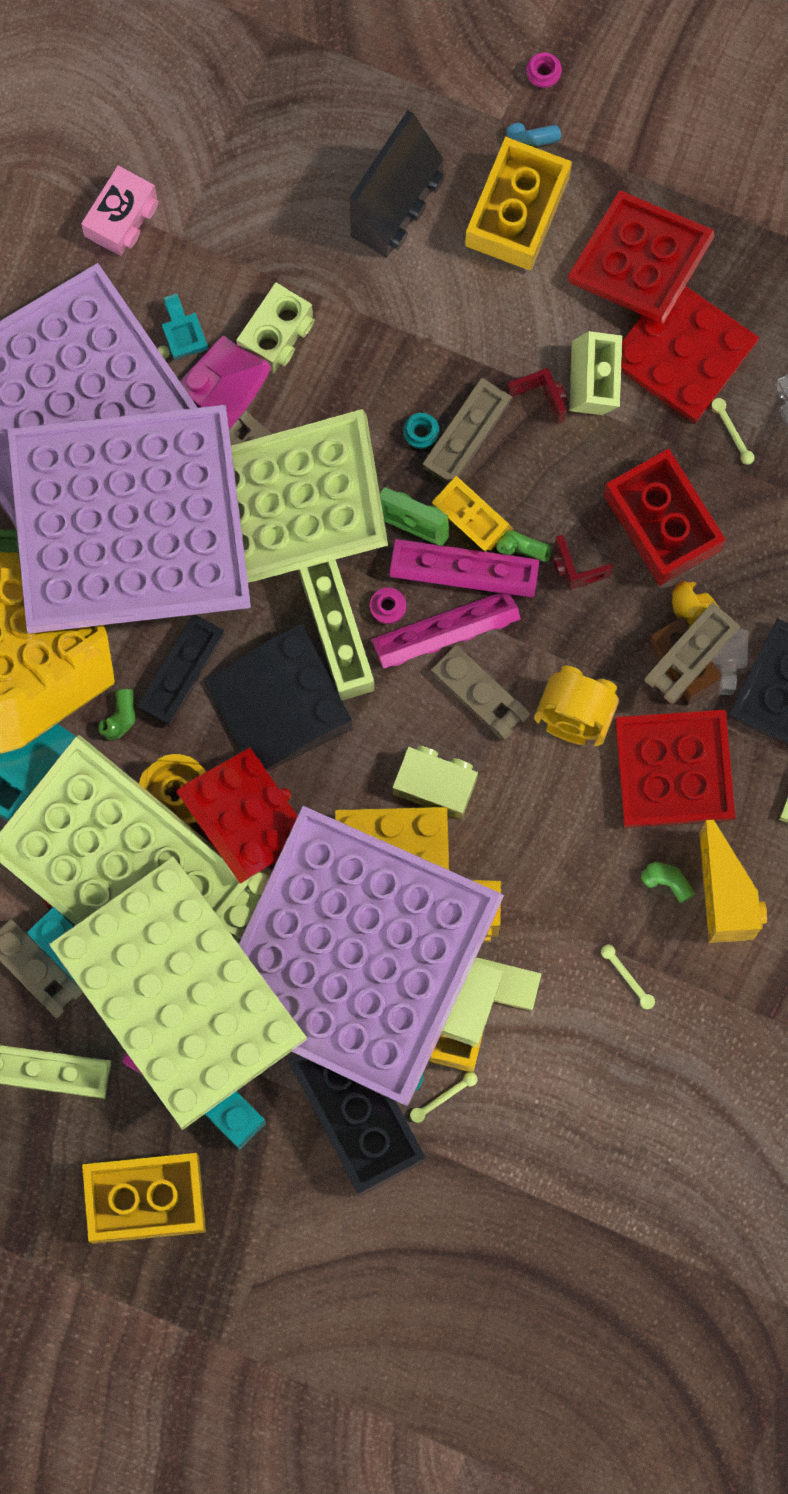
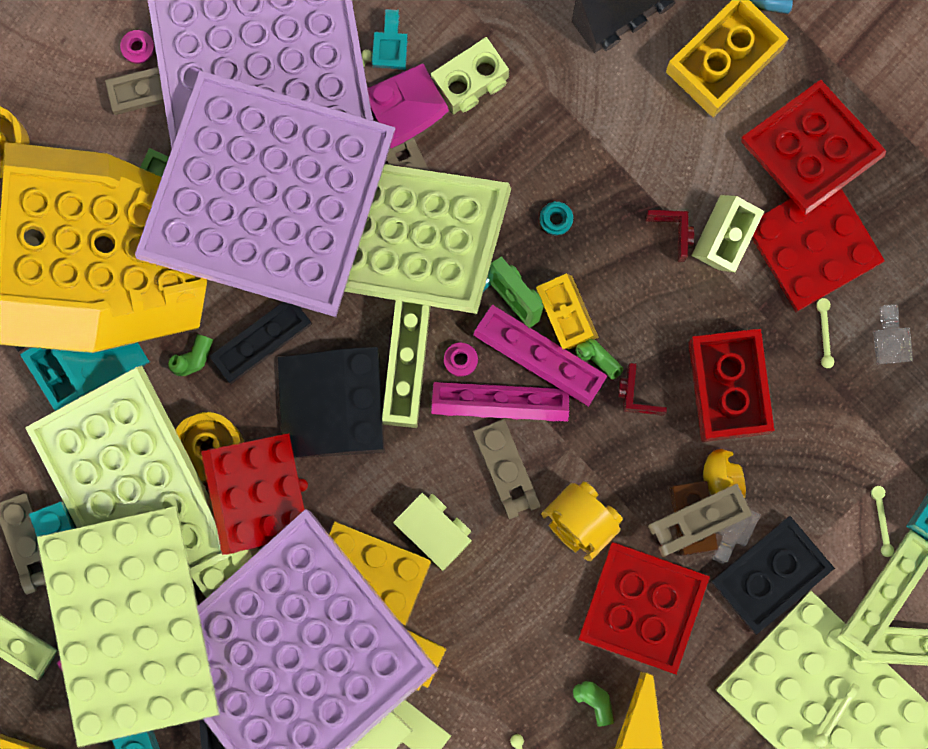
camera: 25 degrees right, 5 degrees up
(467, 431) = (595, 236): dark tan plate -> none

